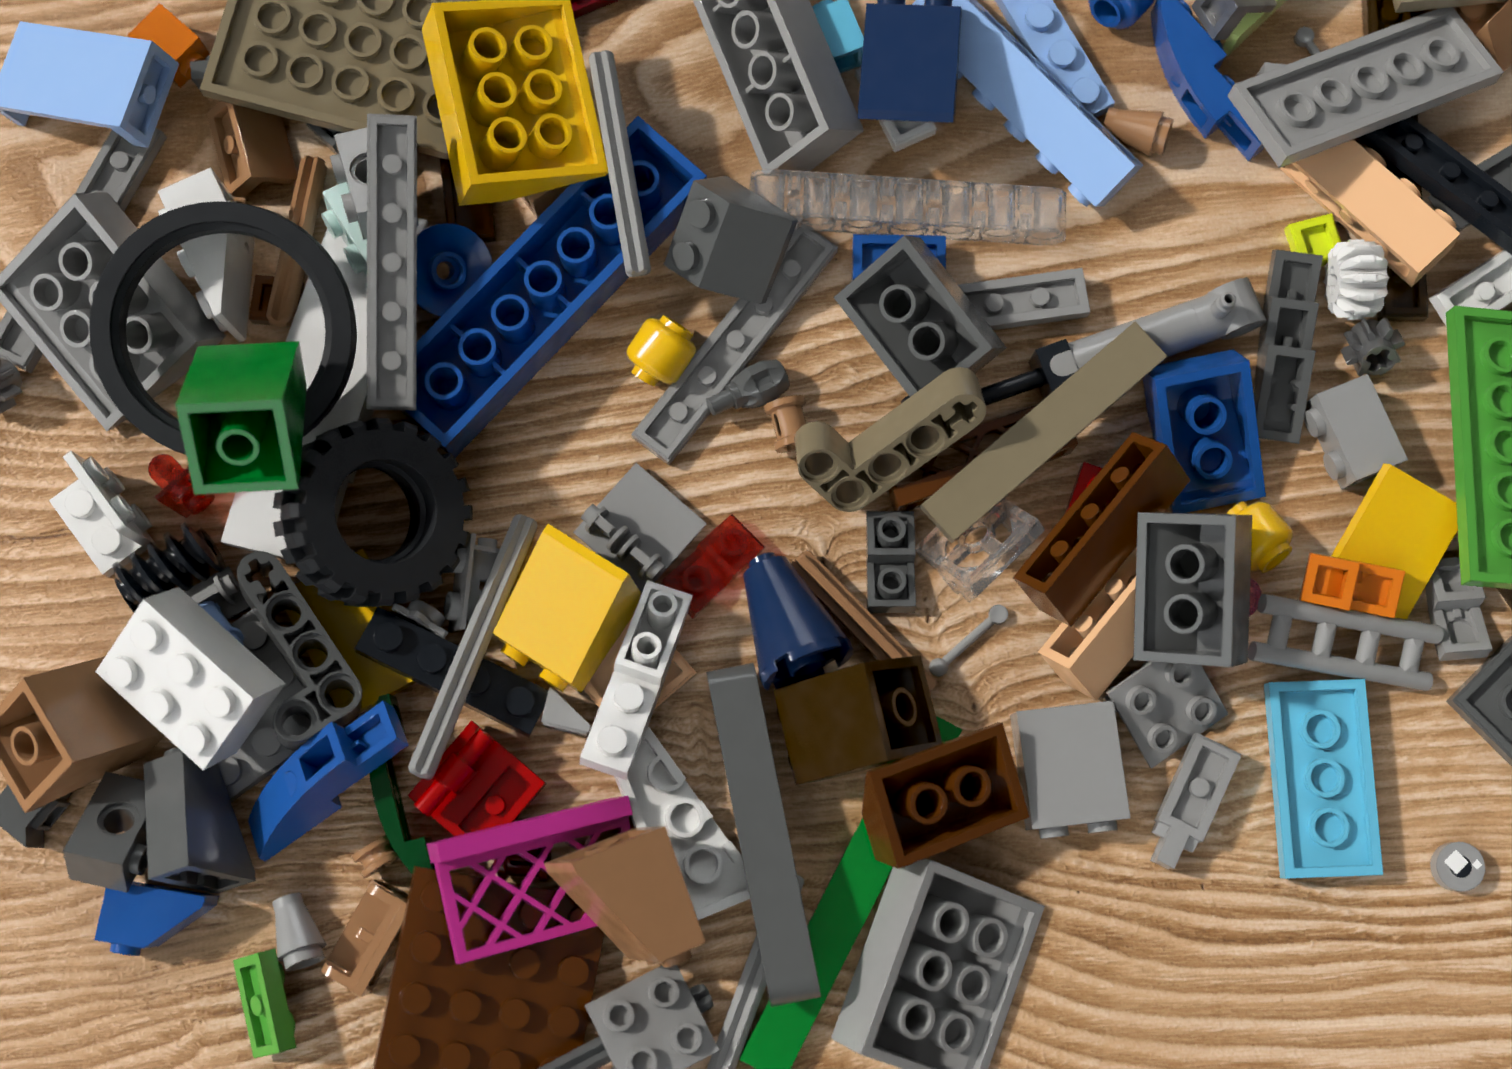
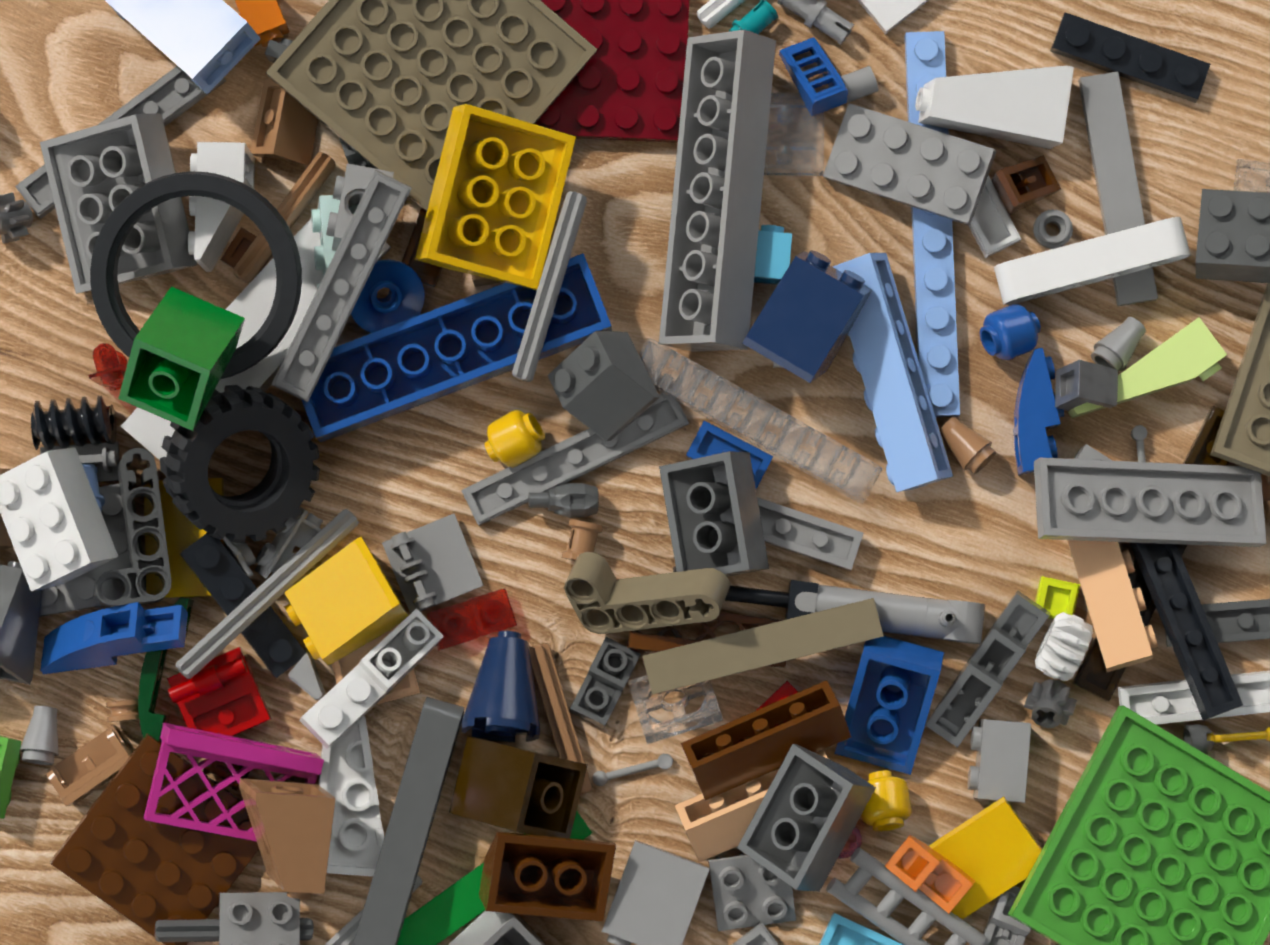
camera: 30 degrees right, 5 degrees up
(100, 515) = (42, 359): white bracket -> none

